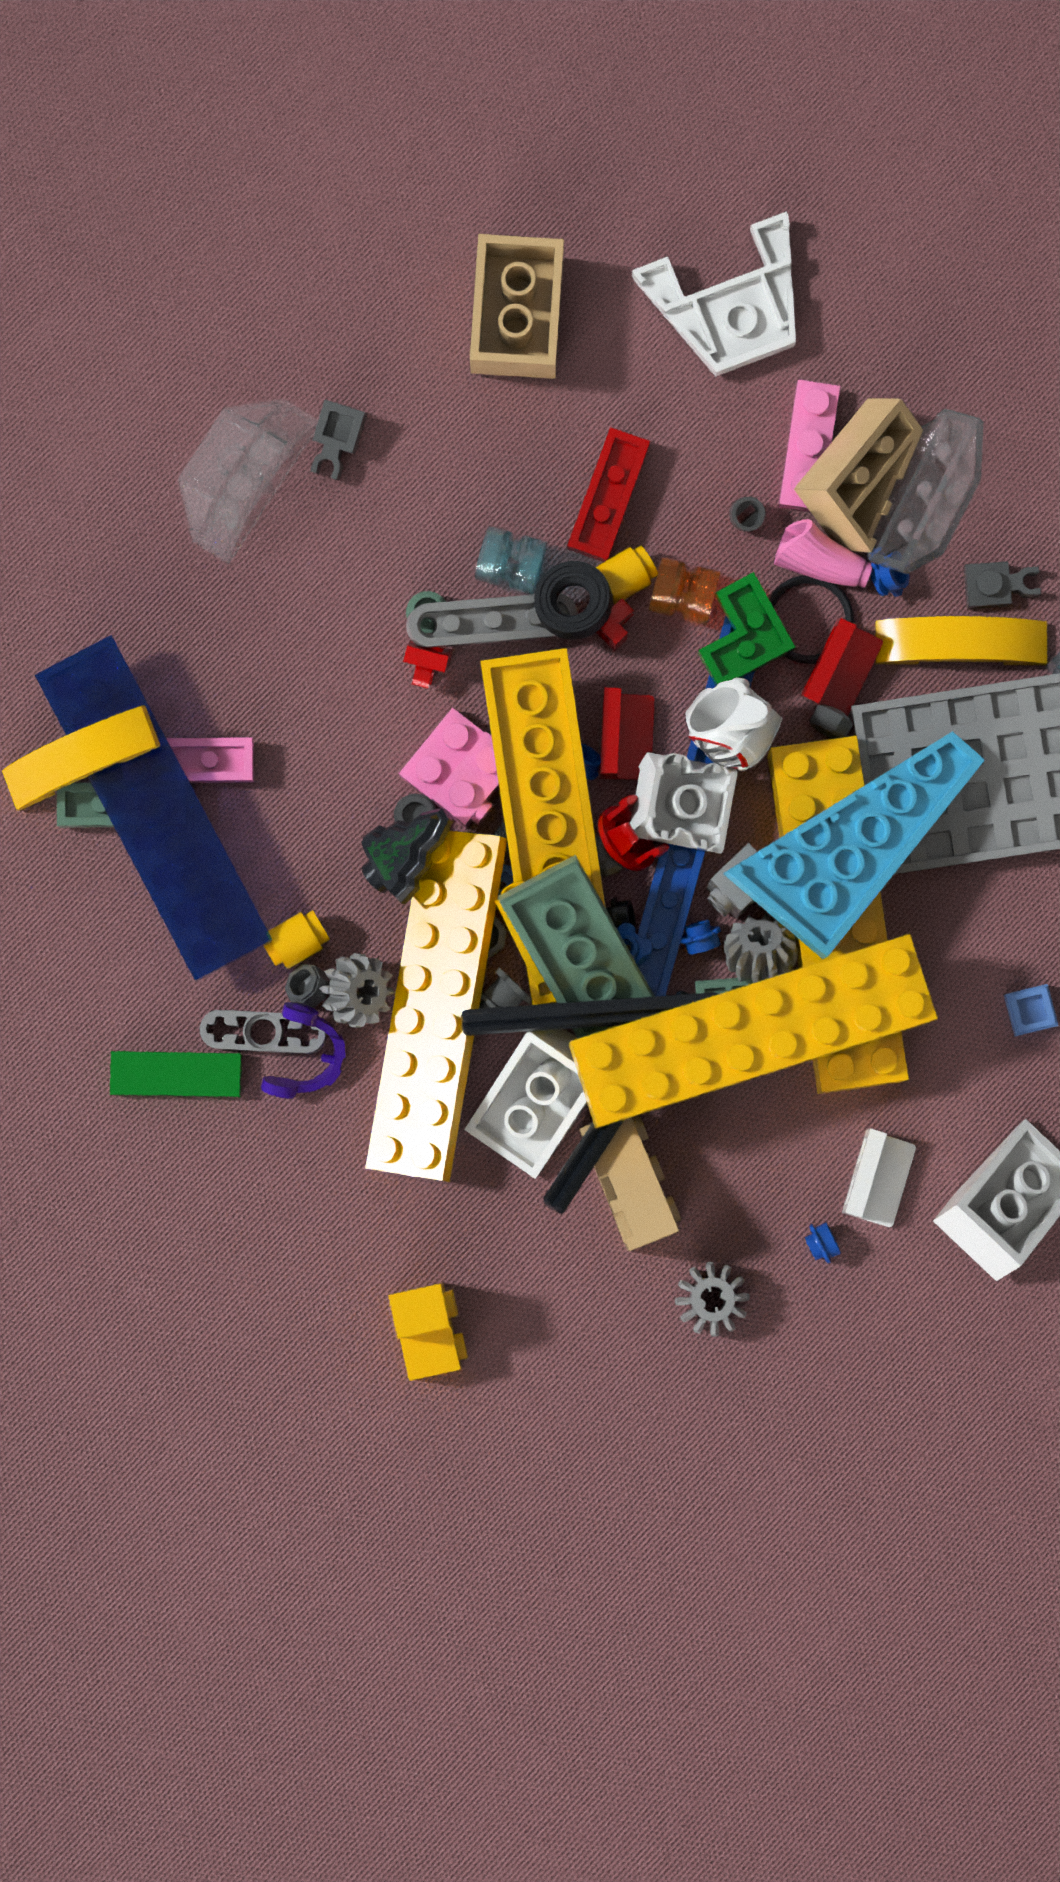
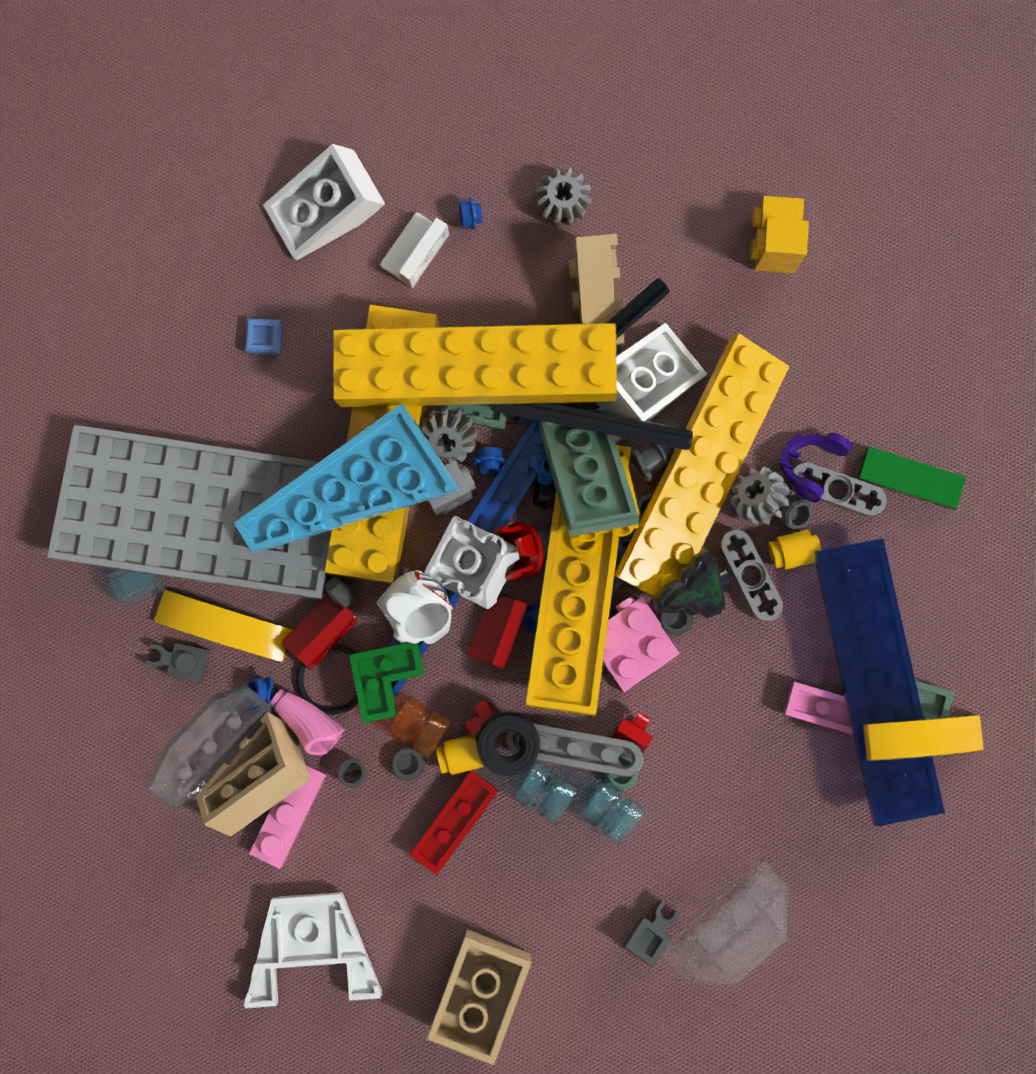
camera: 160 degrees left, 0 degrees up
(309, 878) = (755, 601): none -> light grey beam
(425, 561) = (620, 821): none -> clear light blue wheel
(686, 545) = (407, 764): none -> dark grey tile

